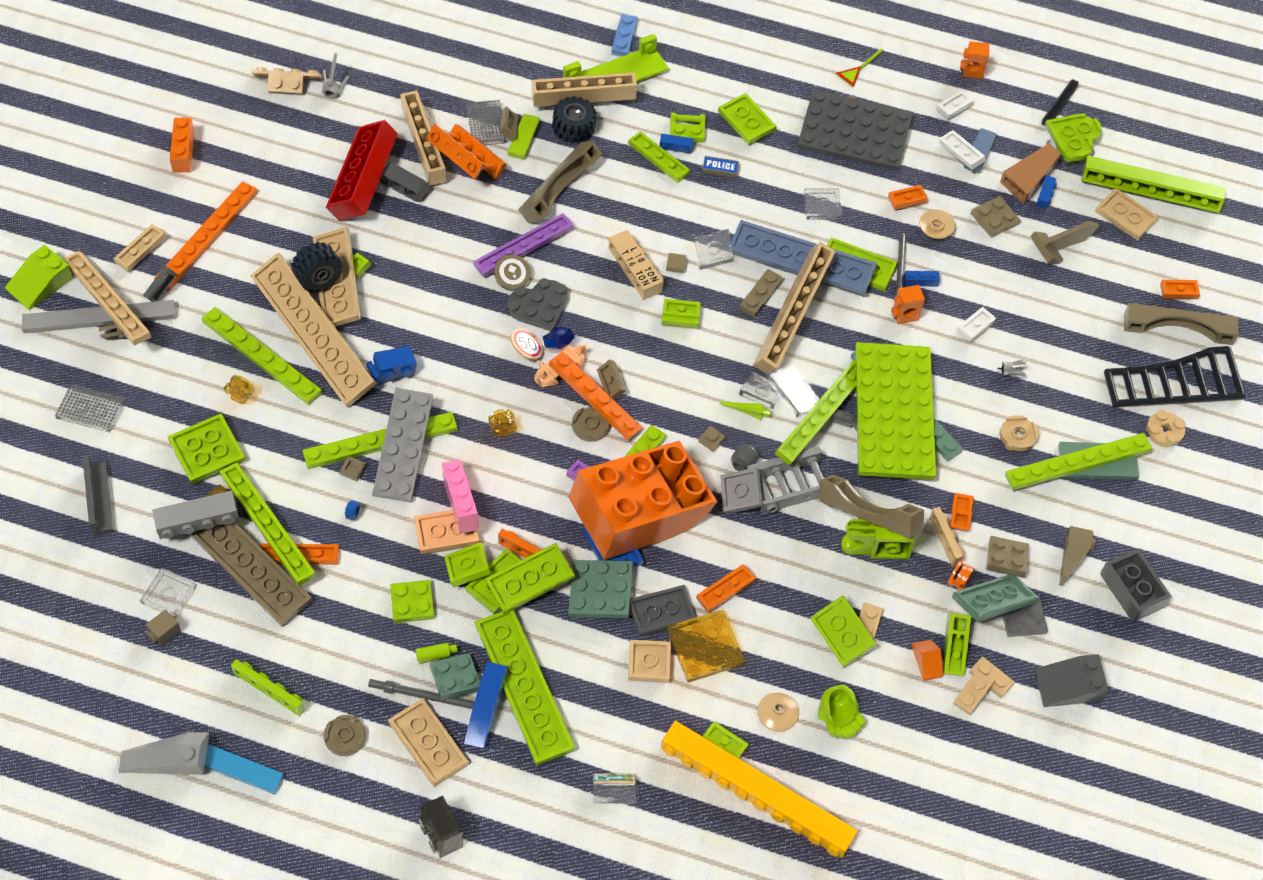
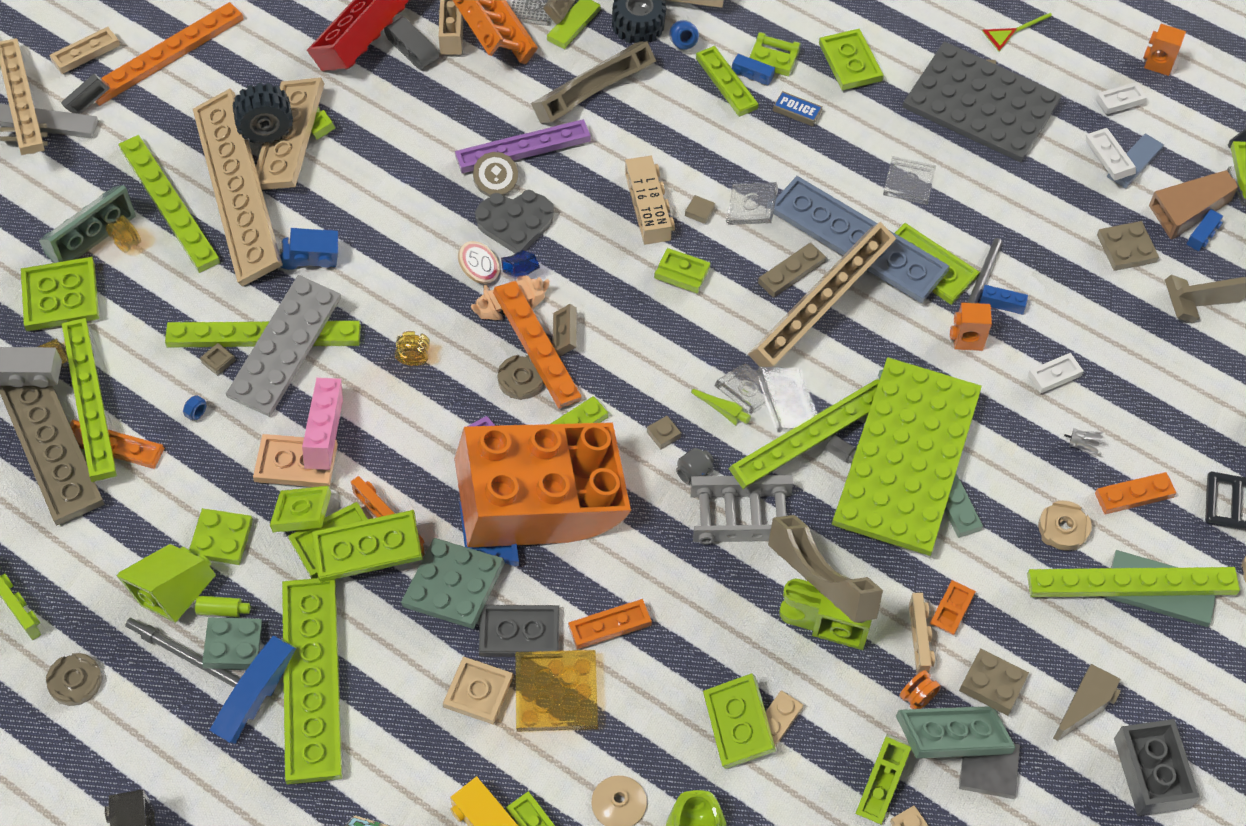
camera: 20 degrees right, 0 degrees up
(207, 389) = (87, 226): none -> sand green slope
(390, 643) = (168, 580): none -> lime slope
(428, 742) = (168, 717): tan tile -> none
(615, 127) = (684, 34): none -> blue head
(741, 490) = (673, 505): light grey plate -> none
(907, 197) = (1020, 196): orange plate -> none
(928, 659) = (840, 789): orange slope -> none
(937, 218) = (1047, 230): tan dish -> none
(1059, 397) = (1135, 493): none -> orange plate

